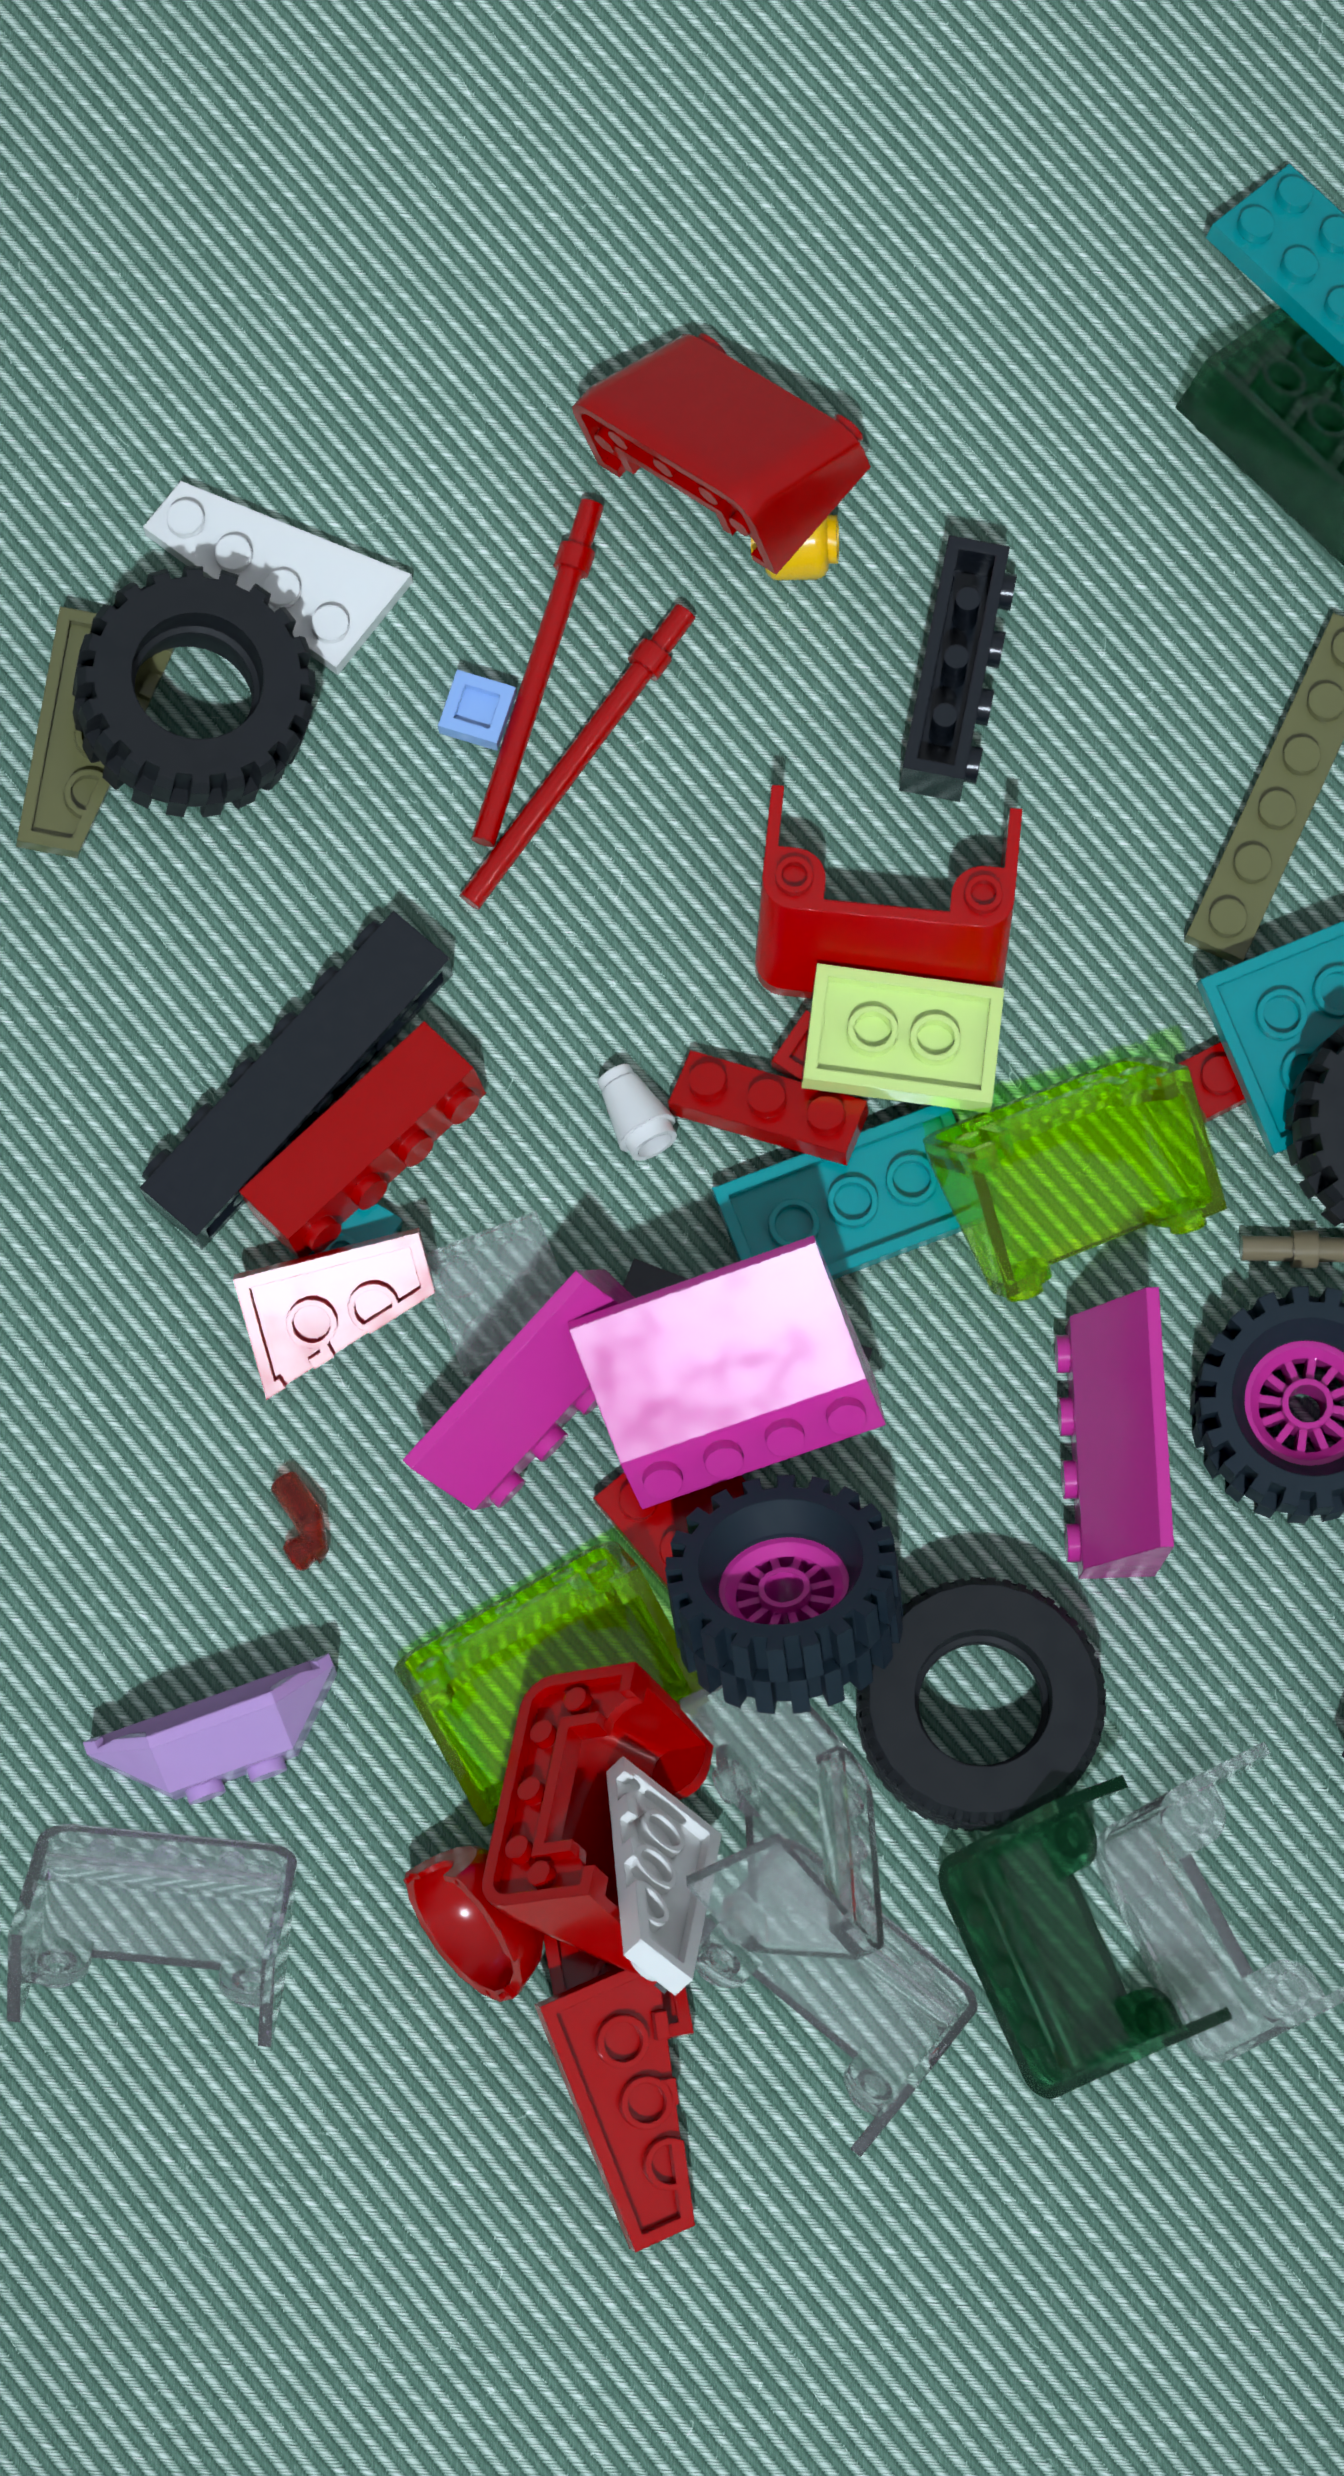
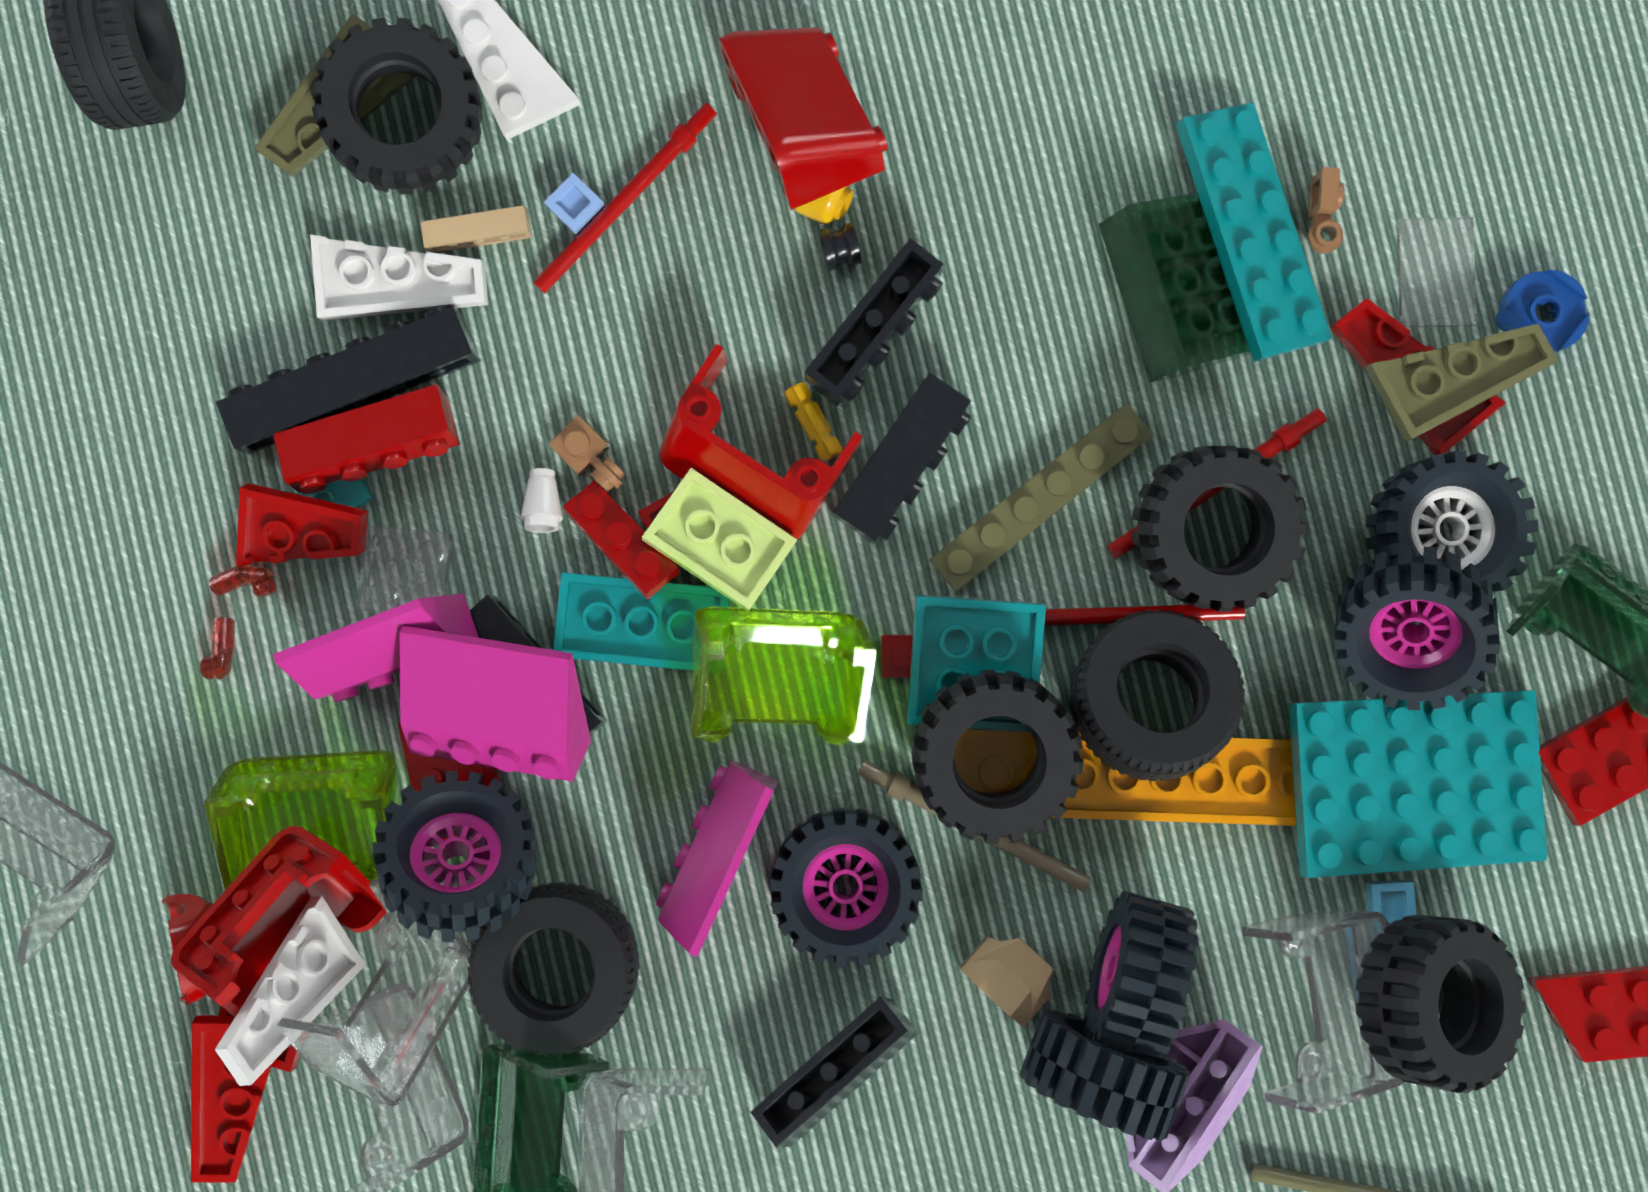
camera: 30 degrees right, 10 degrees up
(221, 1736) = (104, 756): lavender wedge -> none
(268, 933) = (377, 280): none -> white wing
(284, 1406) = (239, 576): none -> clear red arm
(363, 805) = (476, 229): none -> tan piece
(647, 663) = (694, 225): red bar -> none
(648, 1019) = (581, 448): none -> medium nougat plate
(856, 595) = (840, 246): none -> black wheel
(936, 833) = (813, 421): none -> yellow axle
(1083, 824) = (902, 458): none -> black brick

